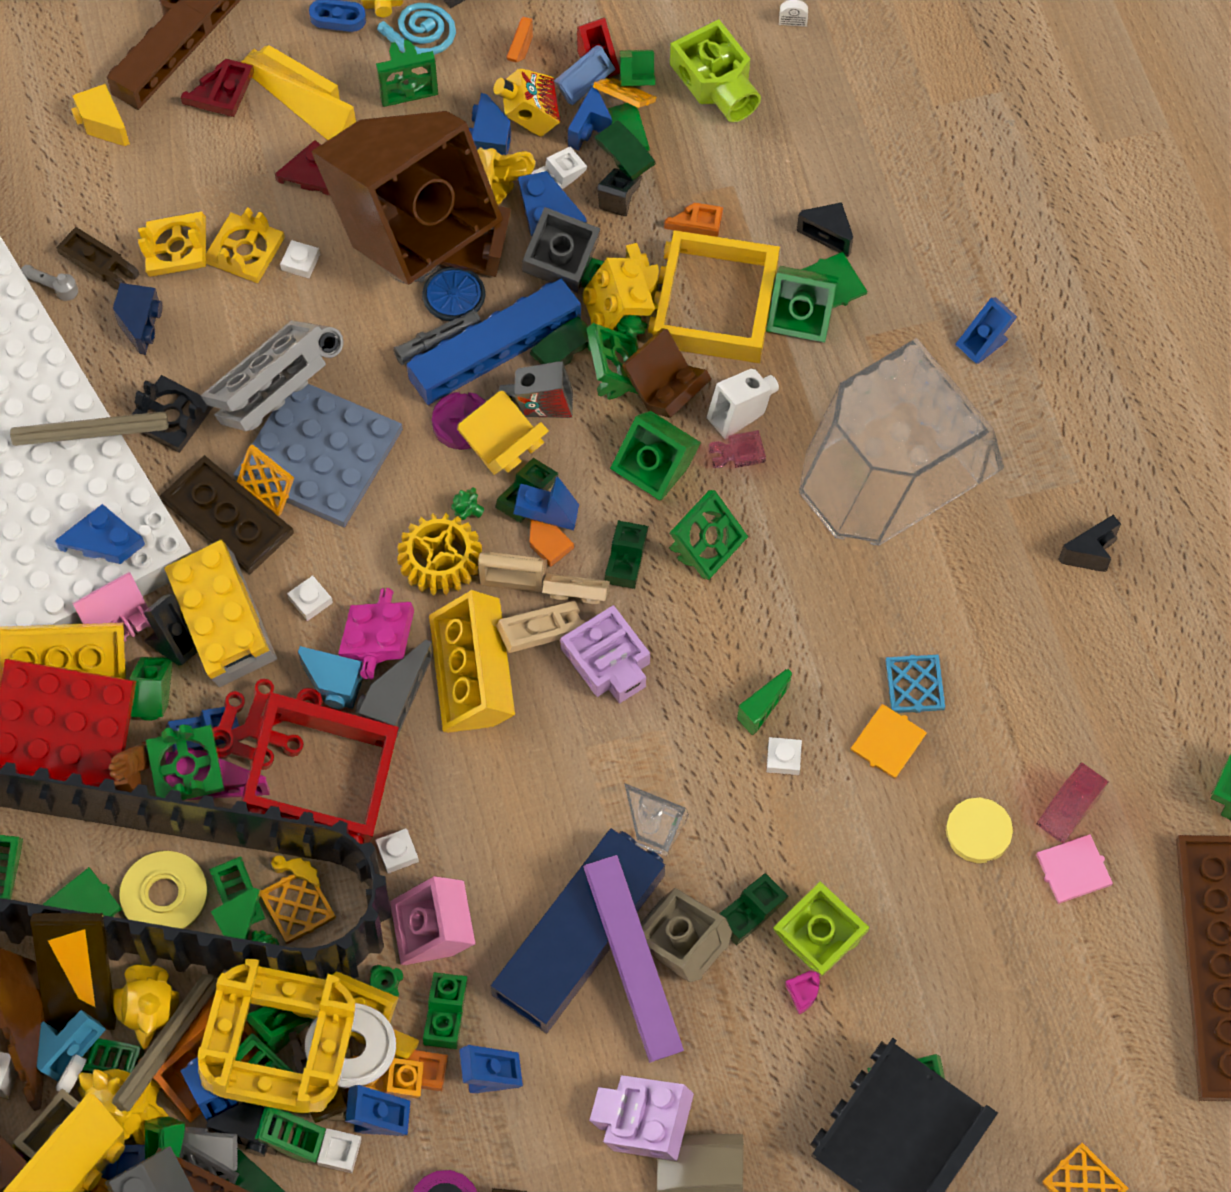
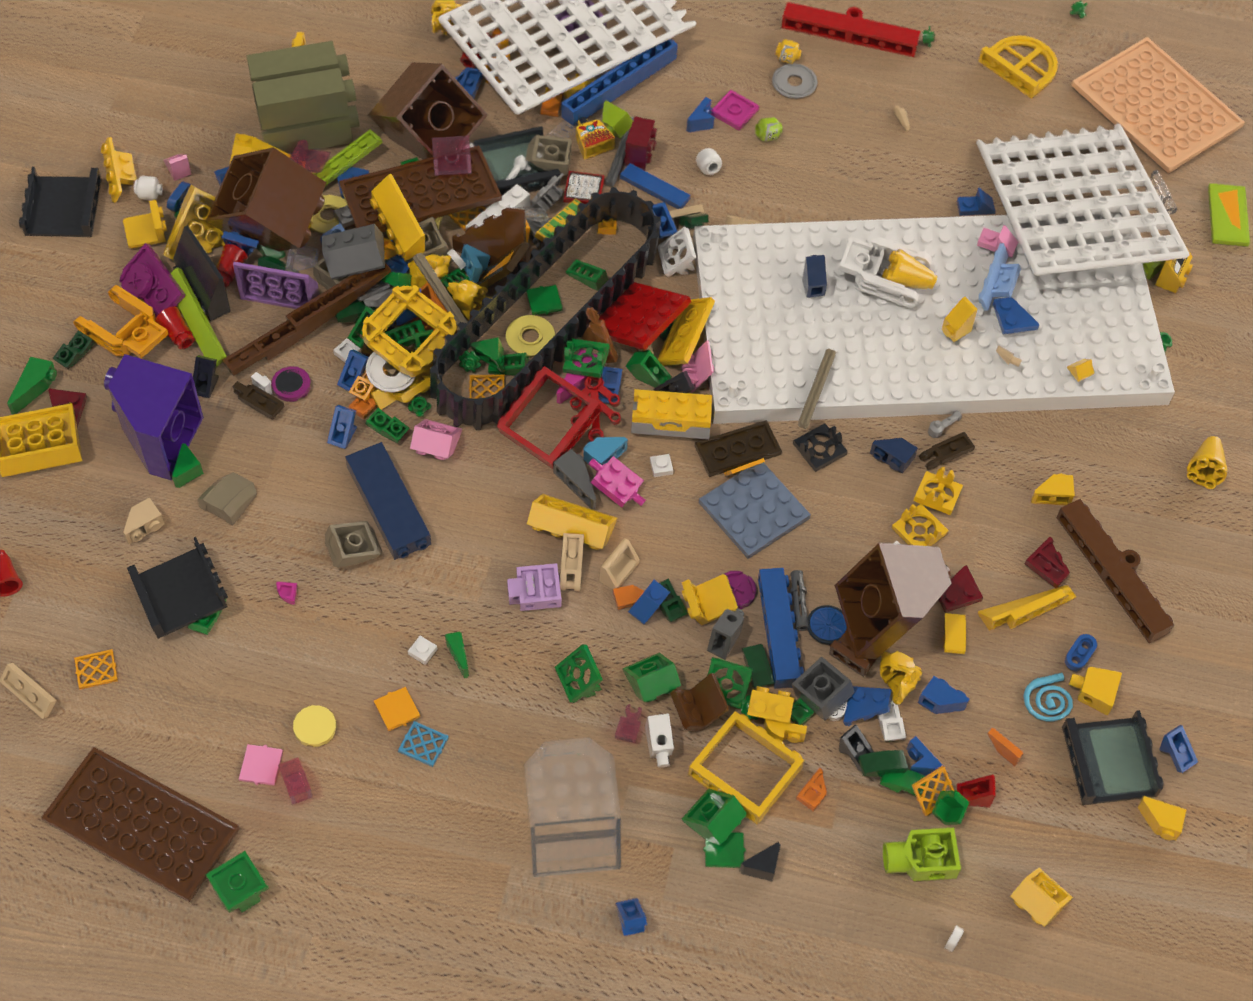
camera: 115 degrees right, 5 degrees down
(102, 536) = (742, 367): blue wing -> none
(272, 374) = (813, 496): light grey hinge -> none
(396, 91) = (1005, 661): green piece -> none
(397, 850) = (487, 442): white plate -> none
(443, 569) = (651, 527): yellow gear -> none
(466, 504) = (674, 562): green plant -> none
(529, 100) = (952, 725): yellow torso -> none
(562, 586) = (588, 592): tan plate -> none
(581, 75) = (959, 772): medium blue tile -> none
(626, 554) = (595, 632): dark green slope -> none
(633, 958) = (353, 511): medium lavender tile -> none
(643, 1116) = (270, 479): lavender piece -> none
(655, 820) = (422, 560): clear slope -> none
(753, 907) = (346, 587): dark green slope -> none
(820, 929) = (310, 610): lime slope -> none
(1089, 548) = (444, 887): black slope -> none

